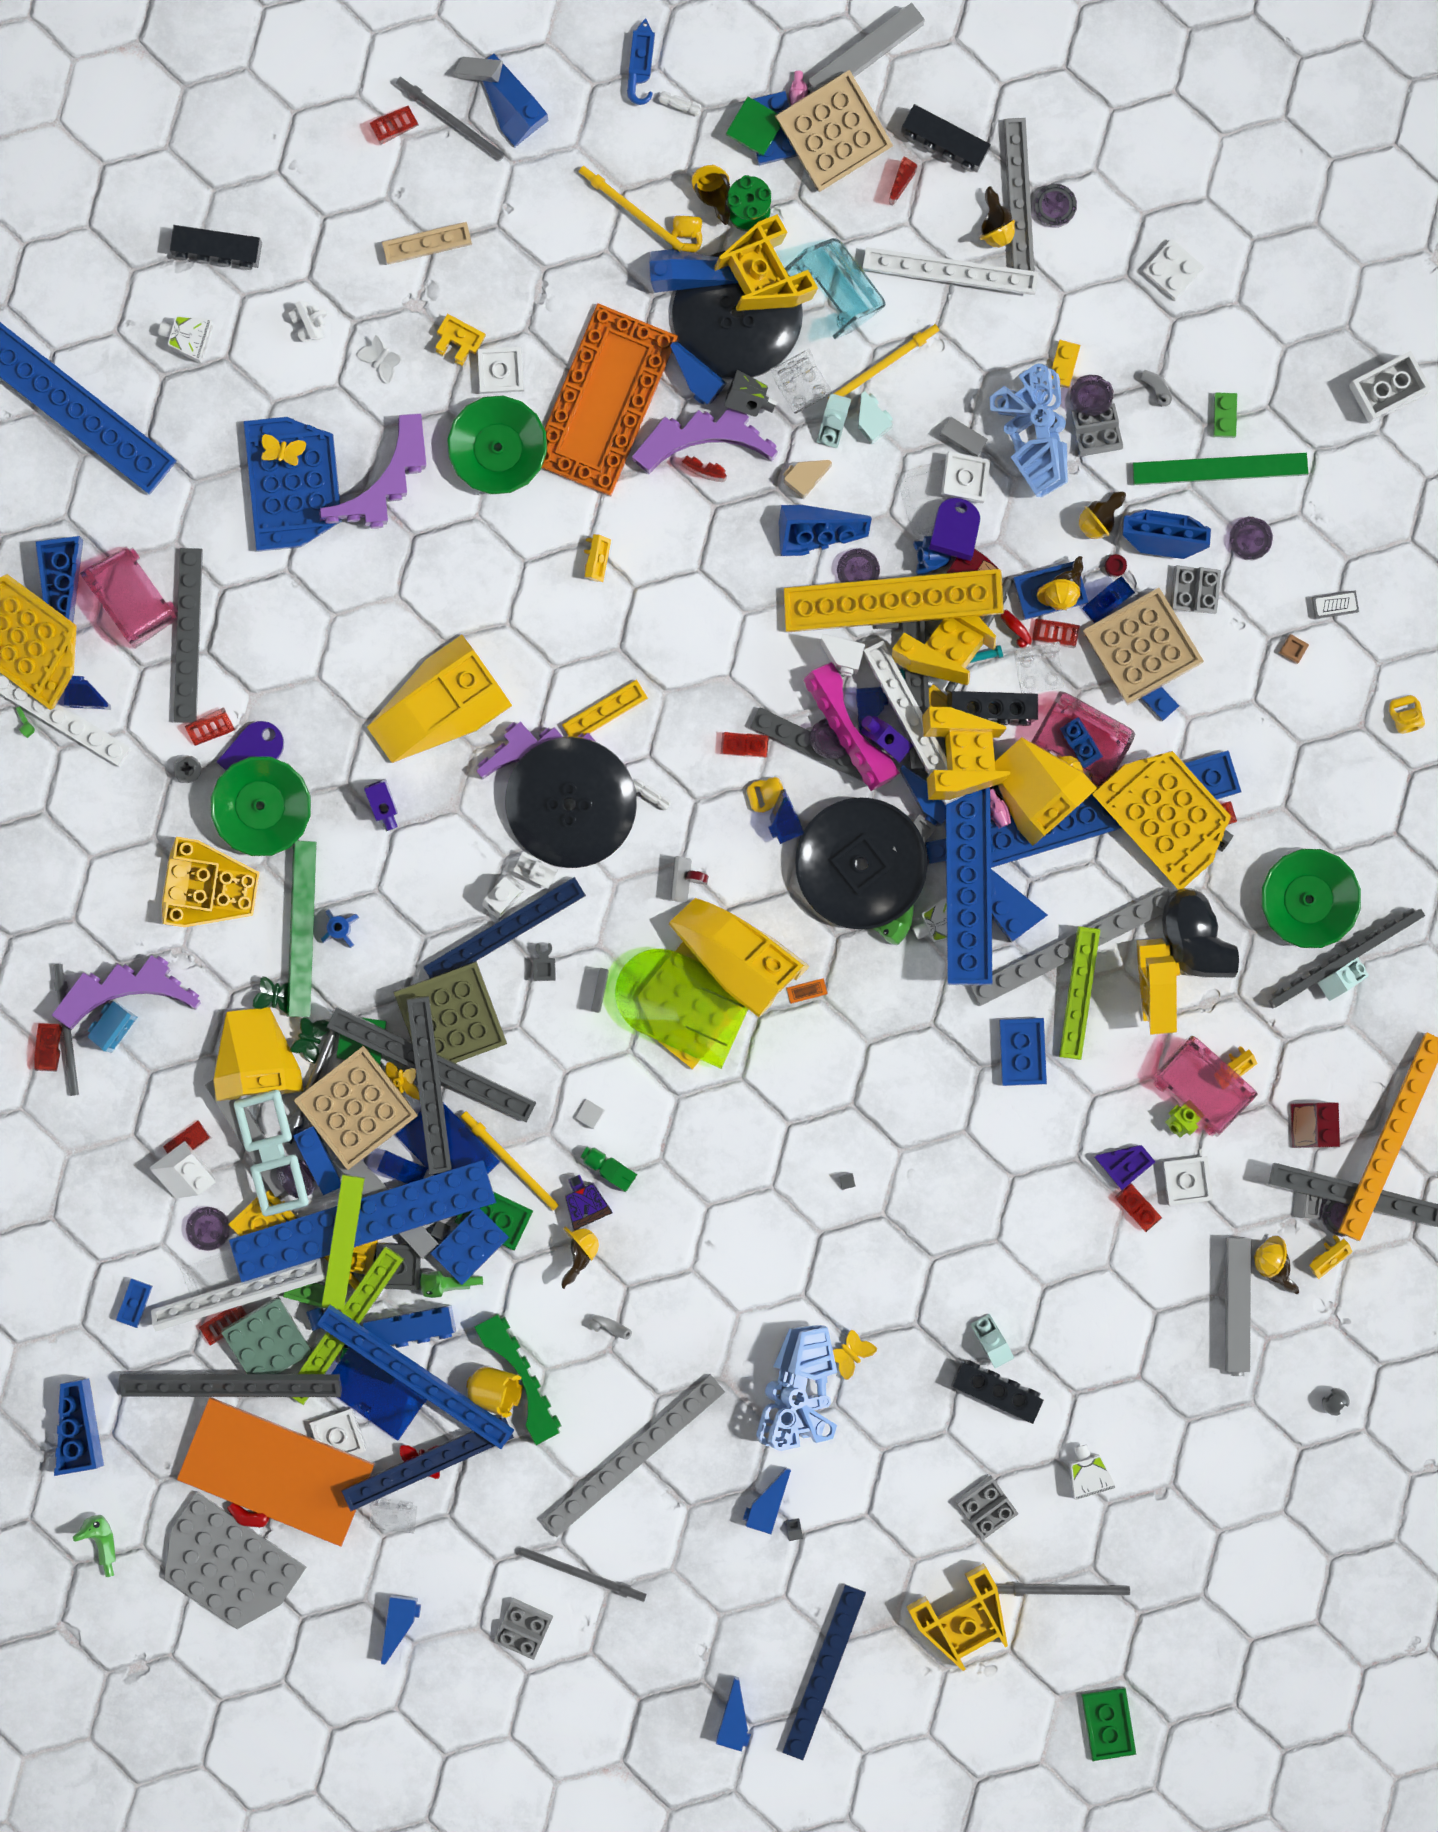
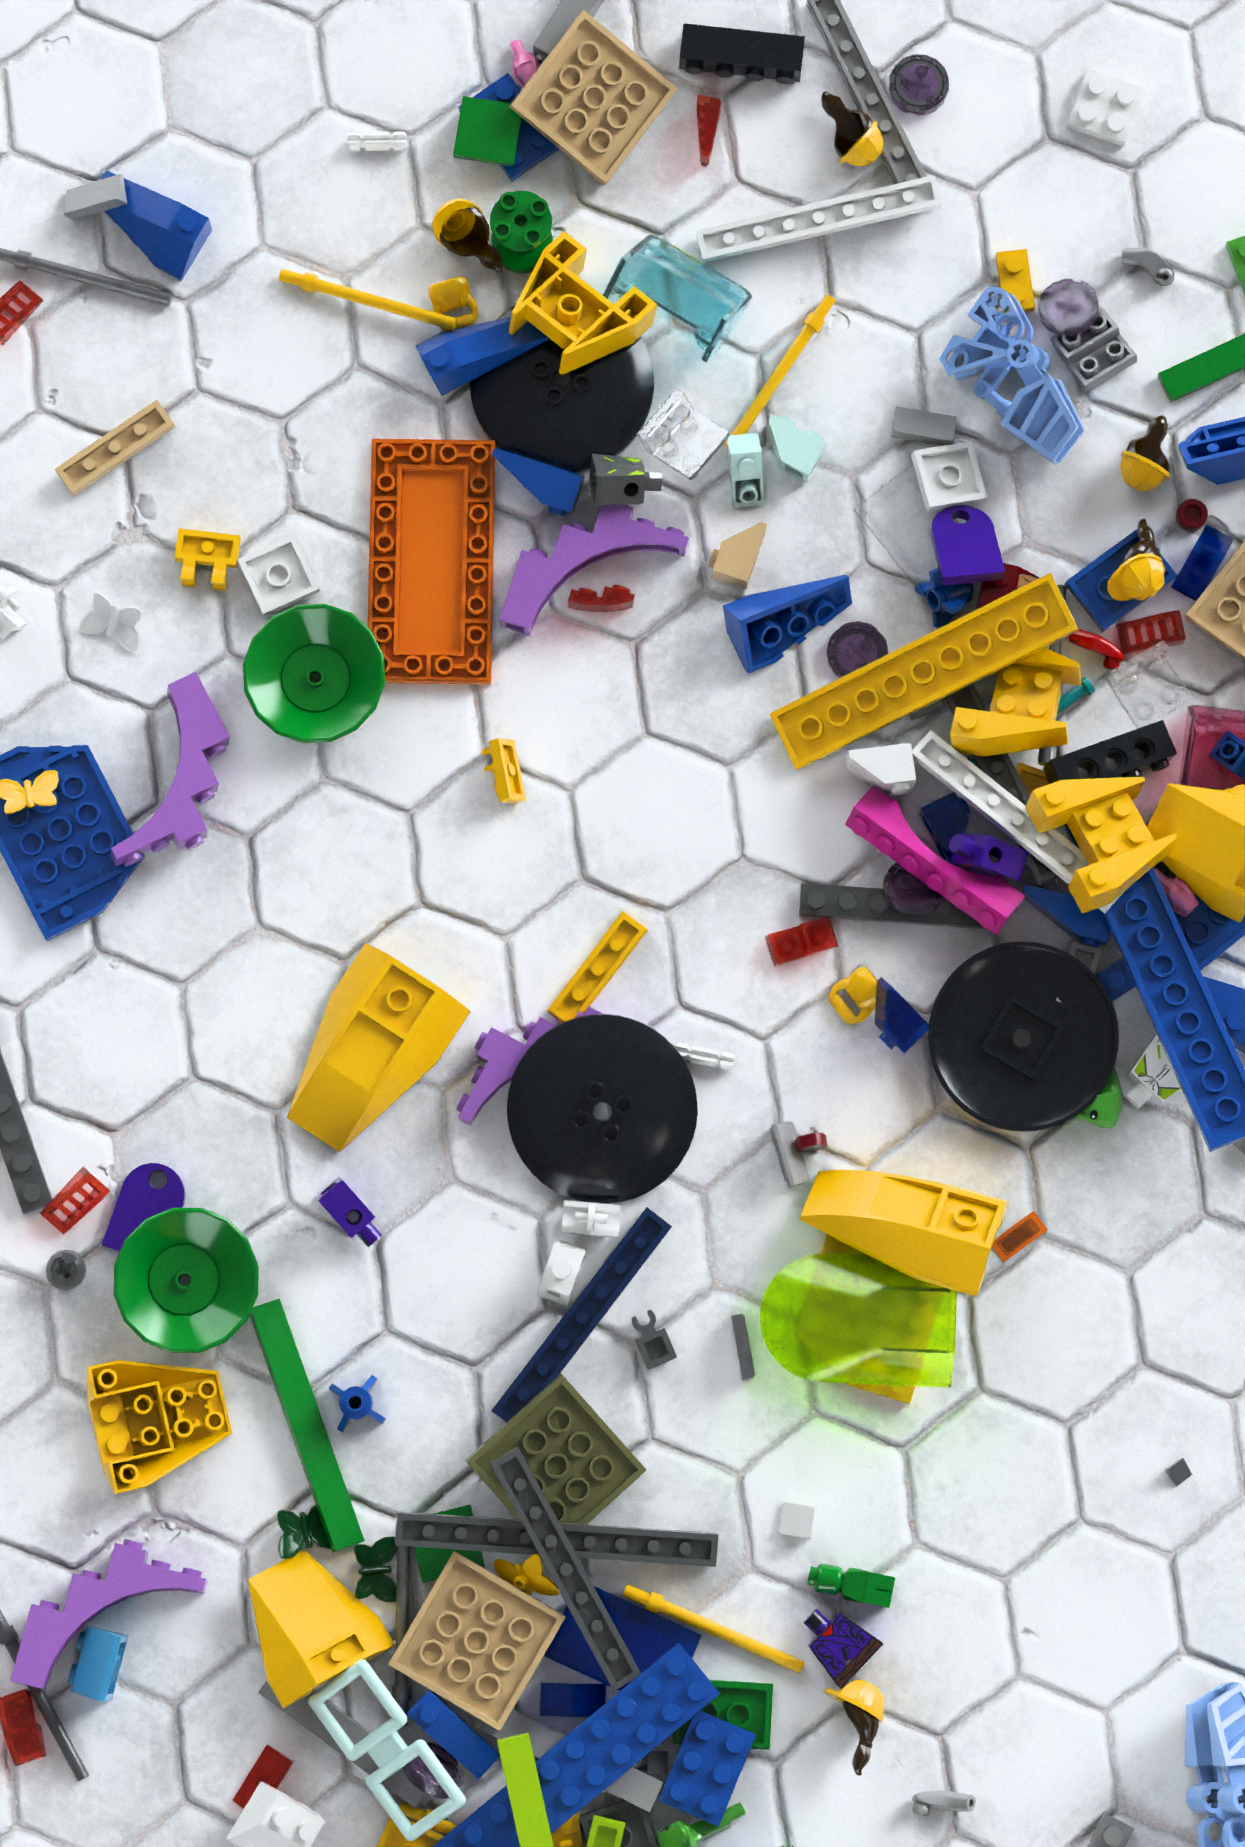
camera: 20 degrees left, 5 degrees down
(640, 61) = (303, 107): blue plate -> none

